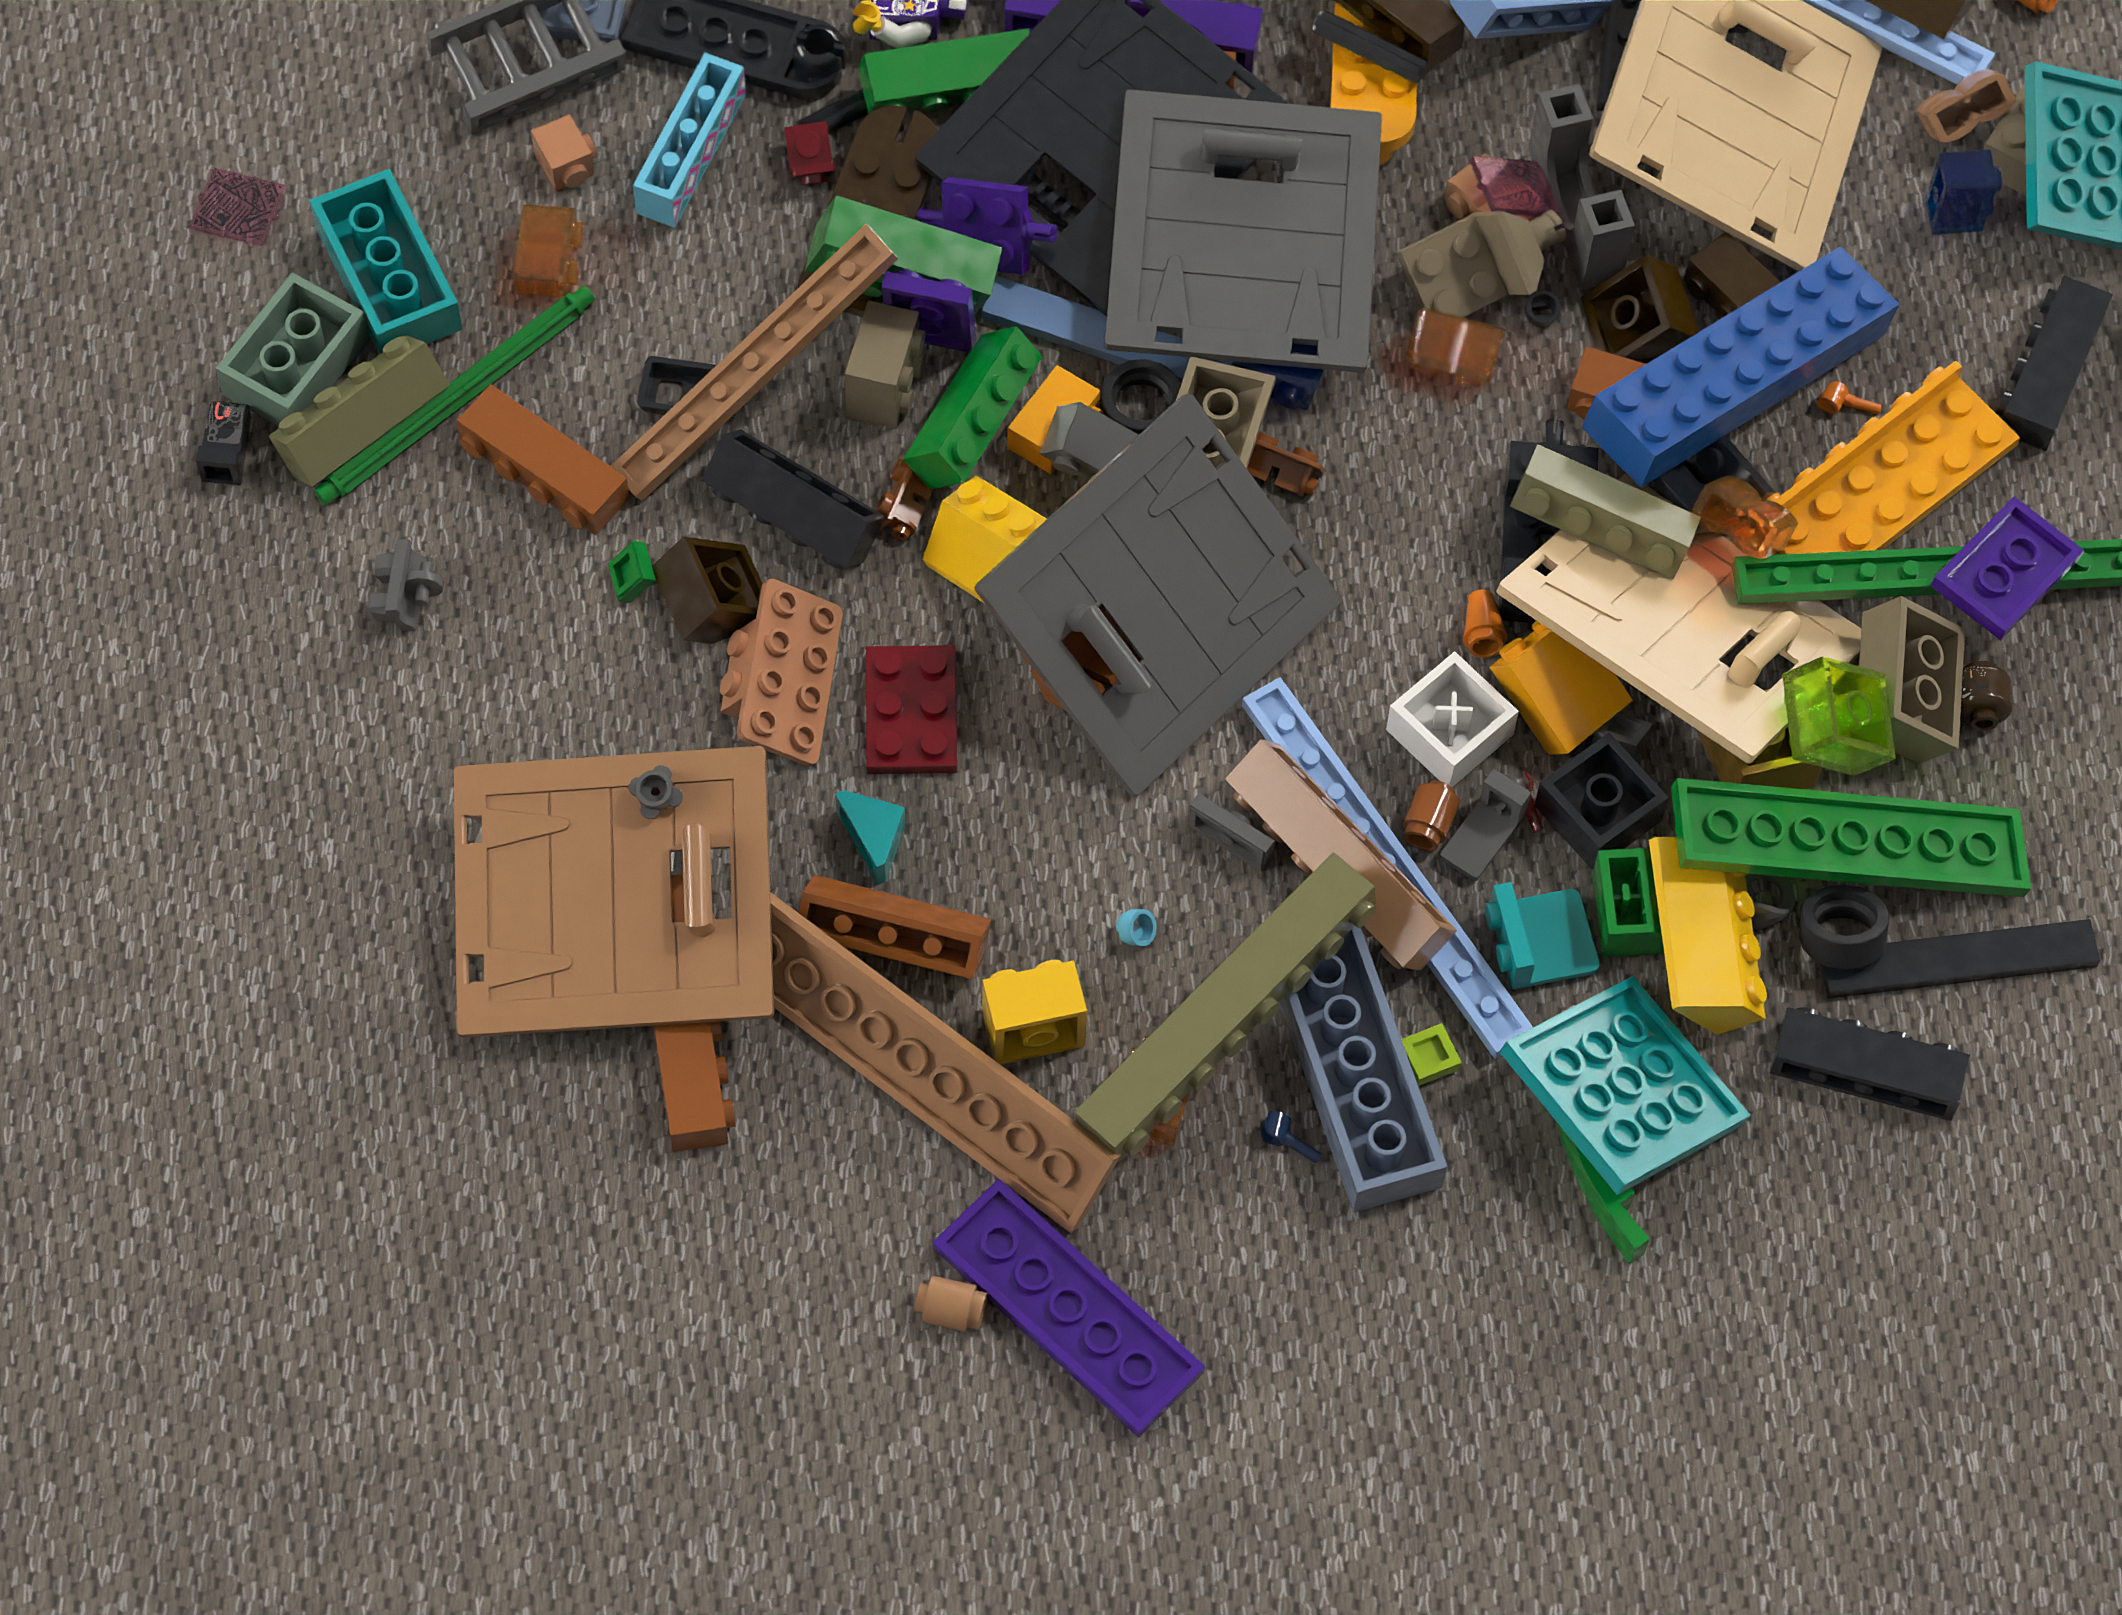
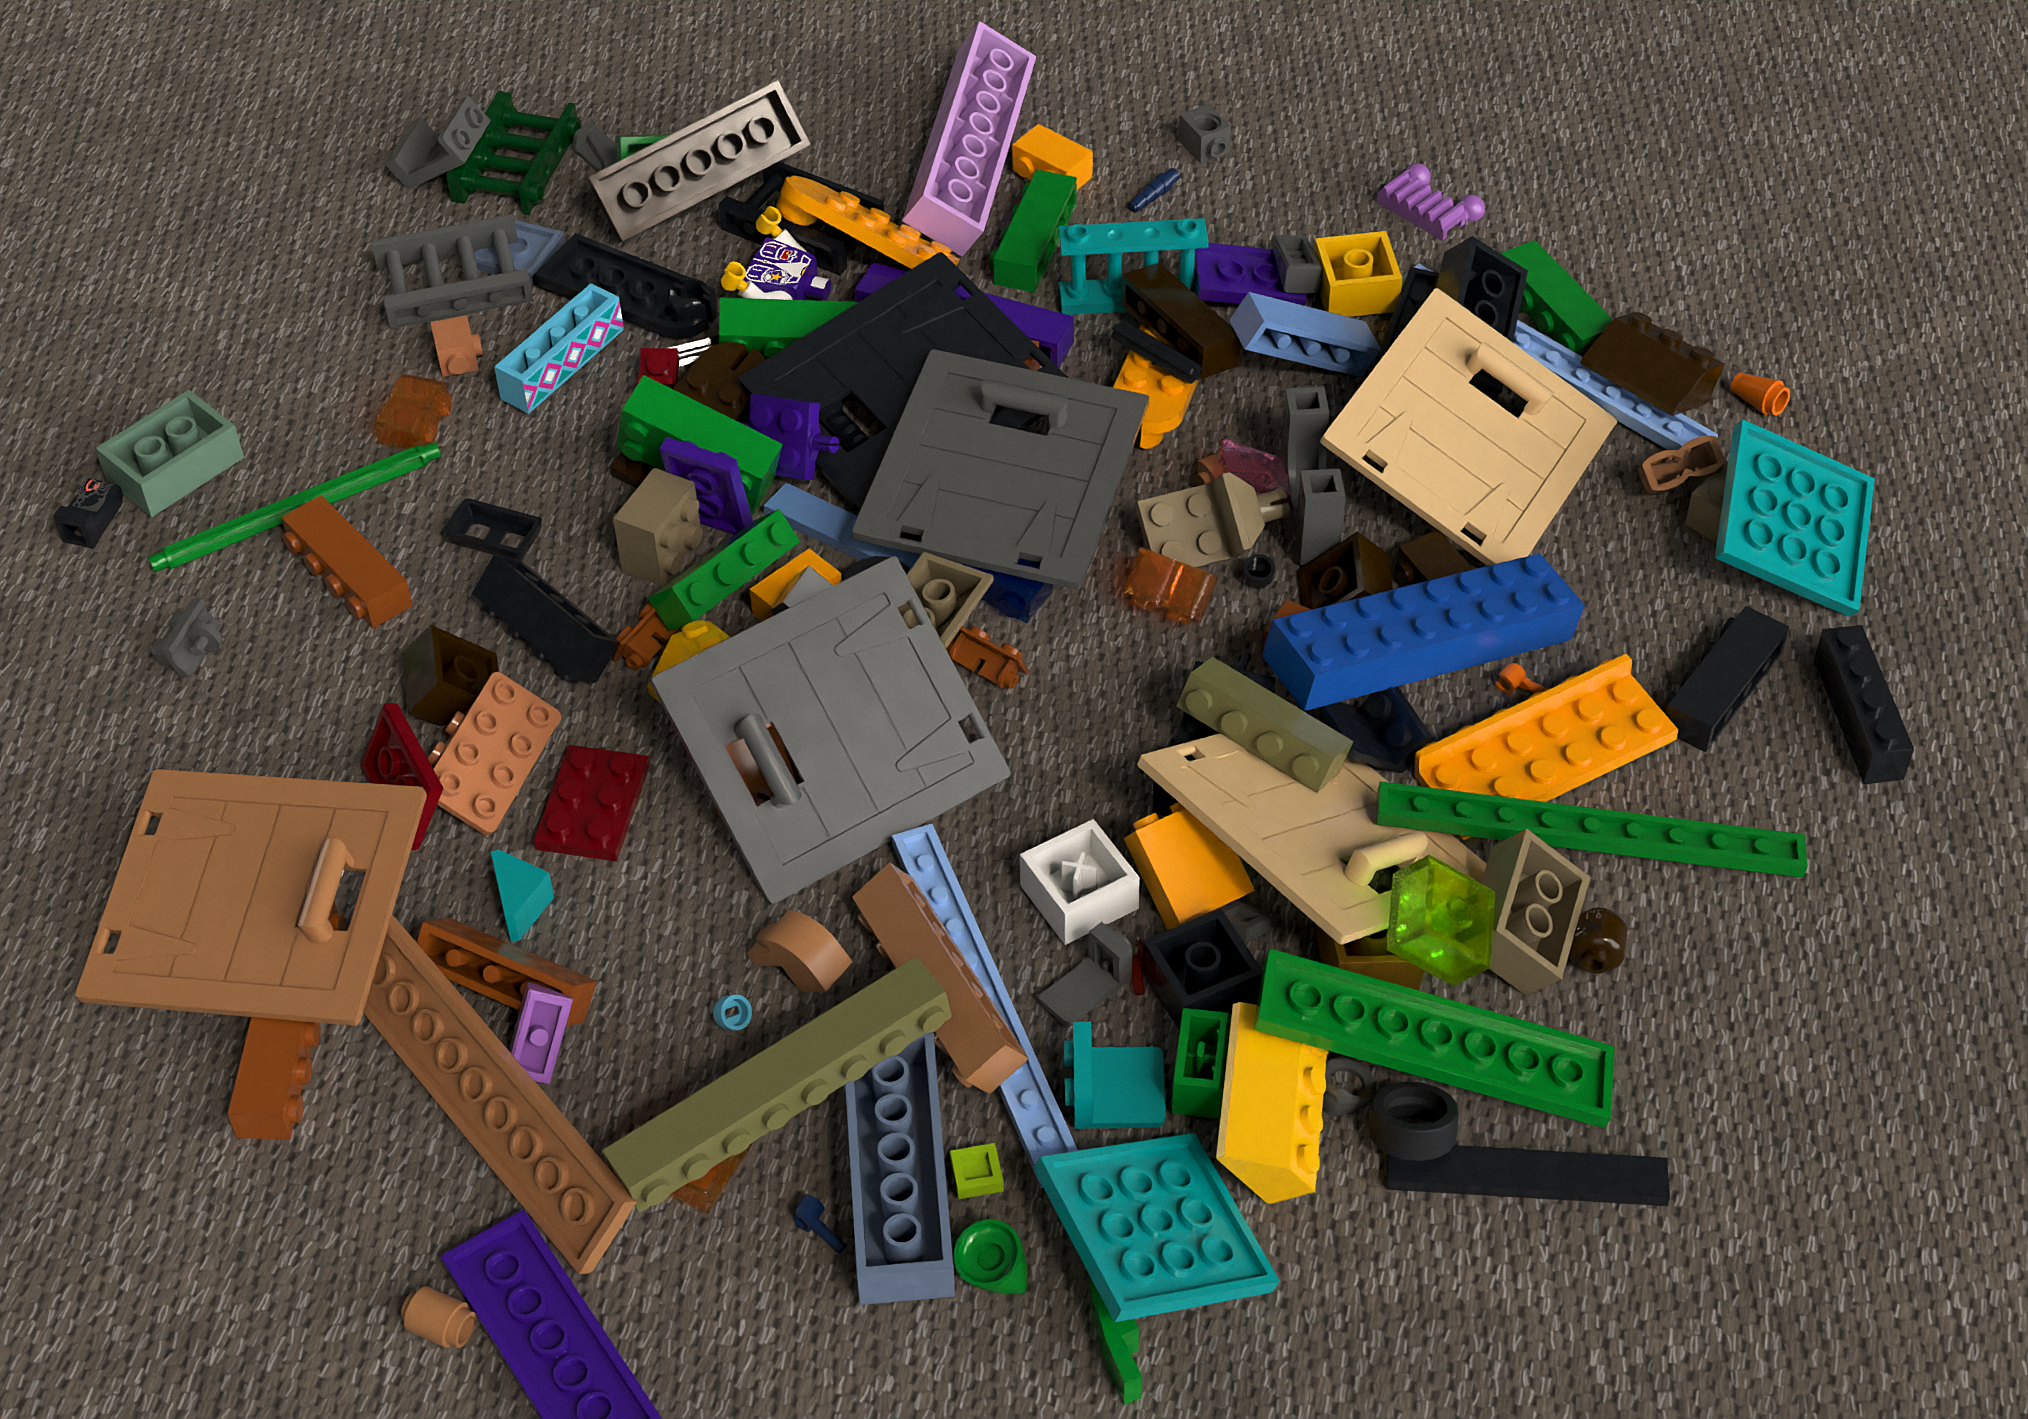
camera: 15 degrees right, 15 degrees down
(238, 206) = (180, 352): clear pink piece -> none
(358, 409) = (206, 500): olive brick -> none
(385, 261) = (273, 402): teal brick -> none
(631, 571) = (386, 655): green tile -> none
(657, 778) = (310, 801): dark grey plate -> none
(701, 708) = (398, 759): none -> dark red tile
(754, 362) = (540, 501): medium nougat plate -> none
(953, 983) = (540, 1030): none -> medium lavender slope
(1034, 1011) = (603, 1064): yellow brick -> none
(1191, 846) = (803, 950): none -> medium nougat brick
(1231, 832) = (865, 959): dark grey plate -> none
(1430, 815) = (1038, 961): dark orange brick -> none
(1472, 1142) = (992, 1257): none -> green piece
(1483, 625) = (1132, 807): orange cone -> none
(1752, 524) = (1396, 749): clear orange brick -> none
(1870, 1063) = (1412, 1252): black brick -> none
(1962, 191) = (1663, 528): clear blue brick -> none
(2007, 568) = (1640, 830): dark purple plate -> none

